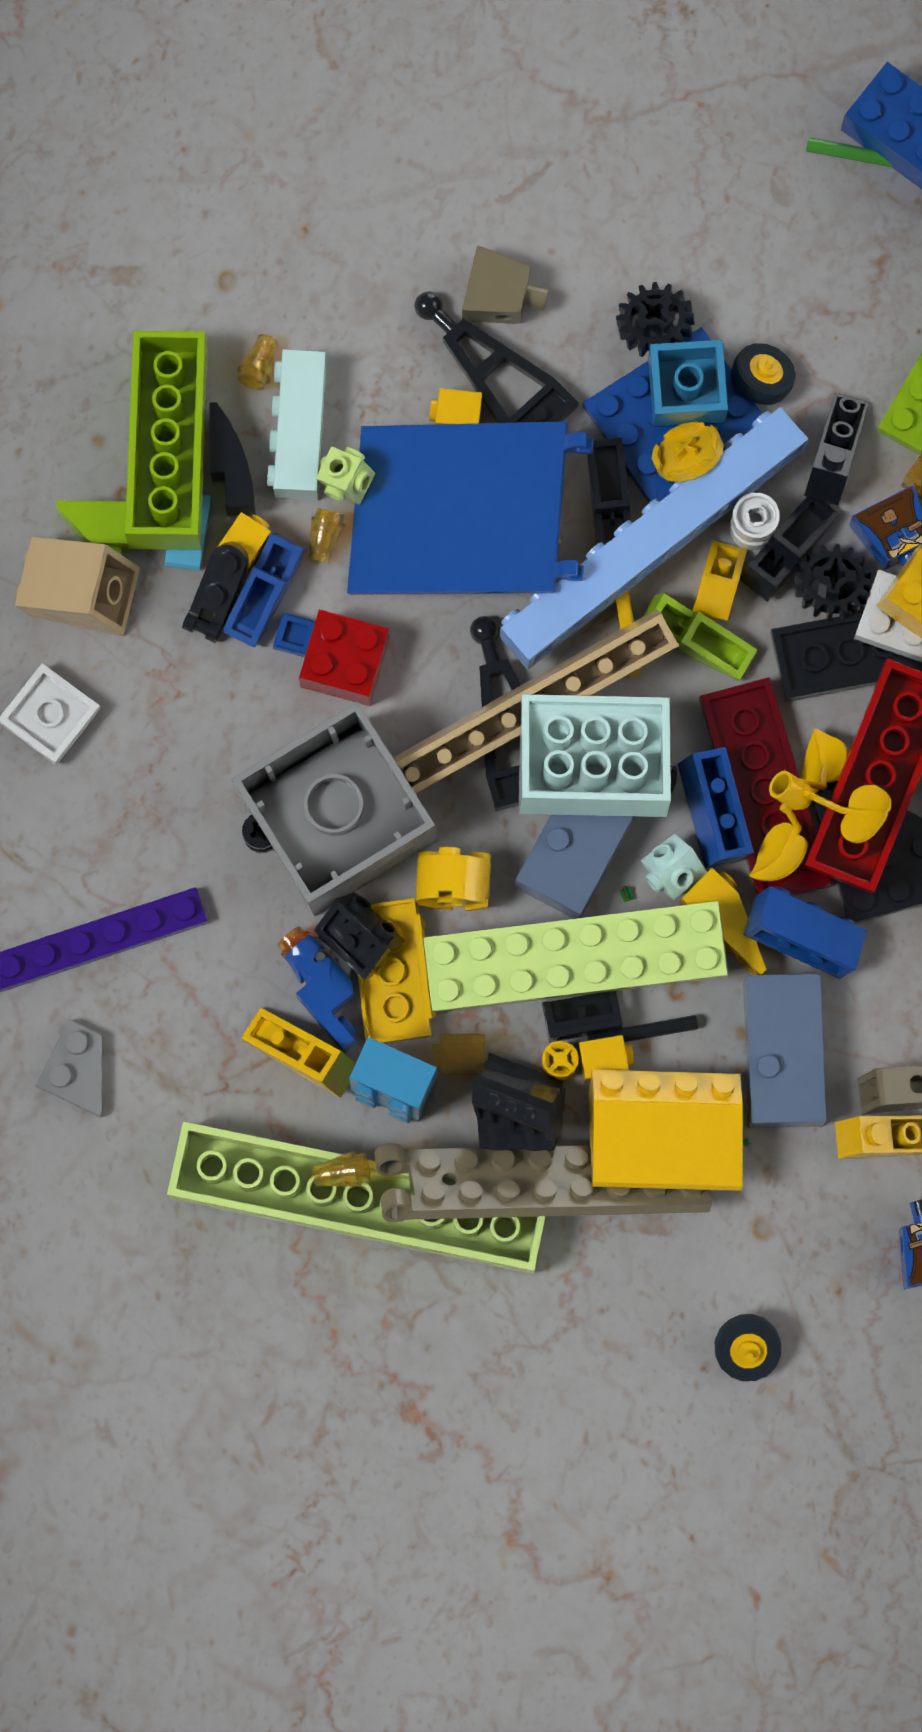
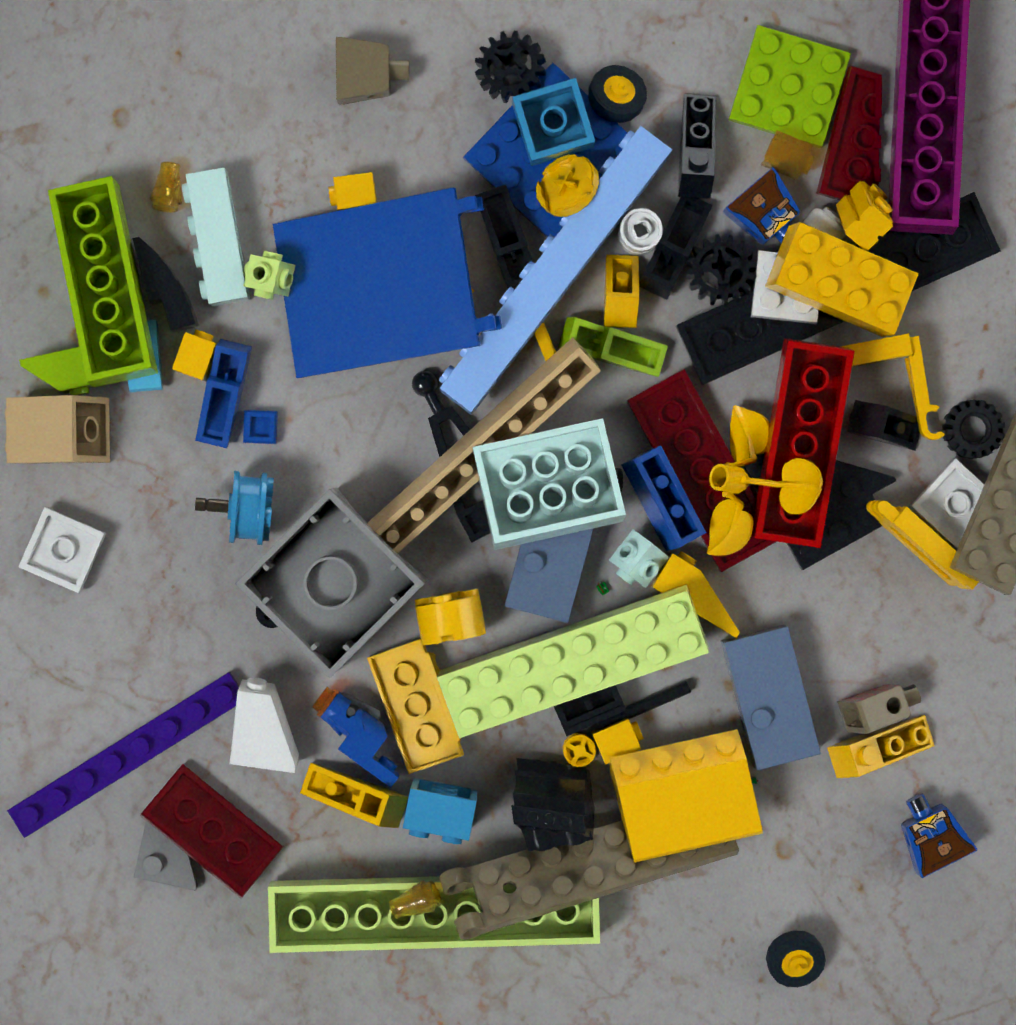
camera: 15 degrees left, 10 degrees up
(134, 1054) = (211, 831): none -> dark red tile
(217, 590) = (182, 406): black plate -> none
(217, 953) = (261, 729): none -> white slope
(261, 711) = (247, 507): none -> dark azure wheel
(324, 534) = (264, 331): clear yellow cone -> none
(344, 657) = (307, 439): red brick -> none
(358, 934) = (380, 682): black bracket -> none
(460, 1054) = (492, 765): clear yellow brick -> none
(549, 404) = (428, 175): black plate -> none
(805, 932) = (766, 590): blue brick -> none

